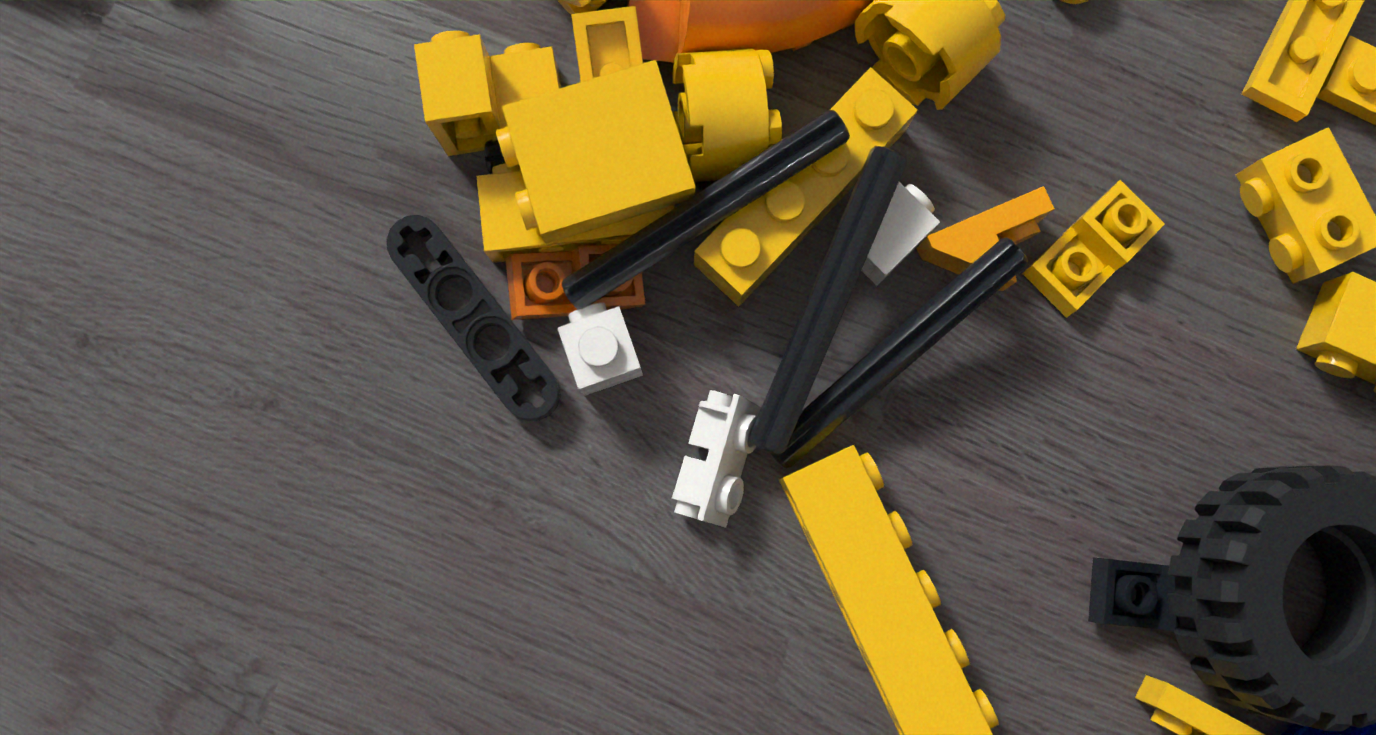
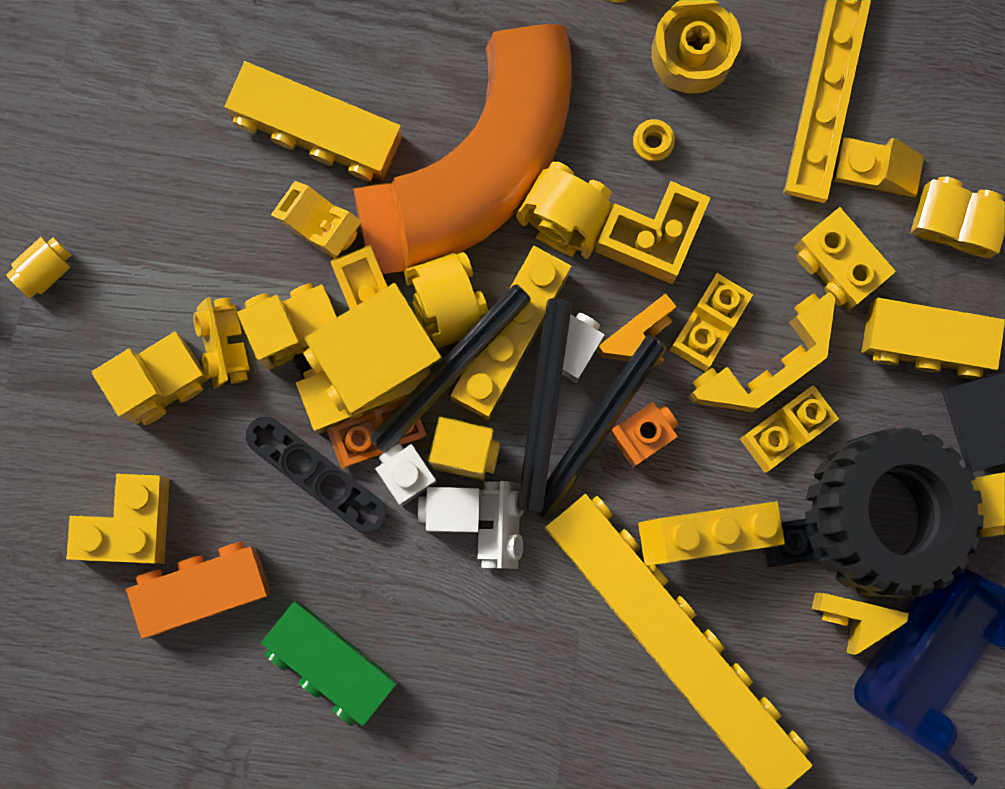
camera: 15 degrees left, 0 degrees up
(194, 325) = (136, 529): none -> yellow brick
(258, 437) = (198, 589): none -> orange brick
(271, 122) = (151, 380): none -> yellow brick
(384, 121) = (215, 326): none -> yellow hinge
(416, 593) = (328, 664): none -> green brick
(650, 417) = (450, 510): none -> white brick
(693, 331) = (464, 449): none -> yellow brick
(937, 386) = (633, 444): none -> orange brick
(1024, 551) = (711, 533): none -> yellow brick
(1043, 112) = (656, 244): none -> yellow brick
(1168, 429) = (789, 428): none -> yellow slope
(1242, 302) = (814, 329): none -> yellow slope

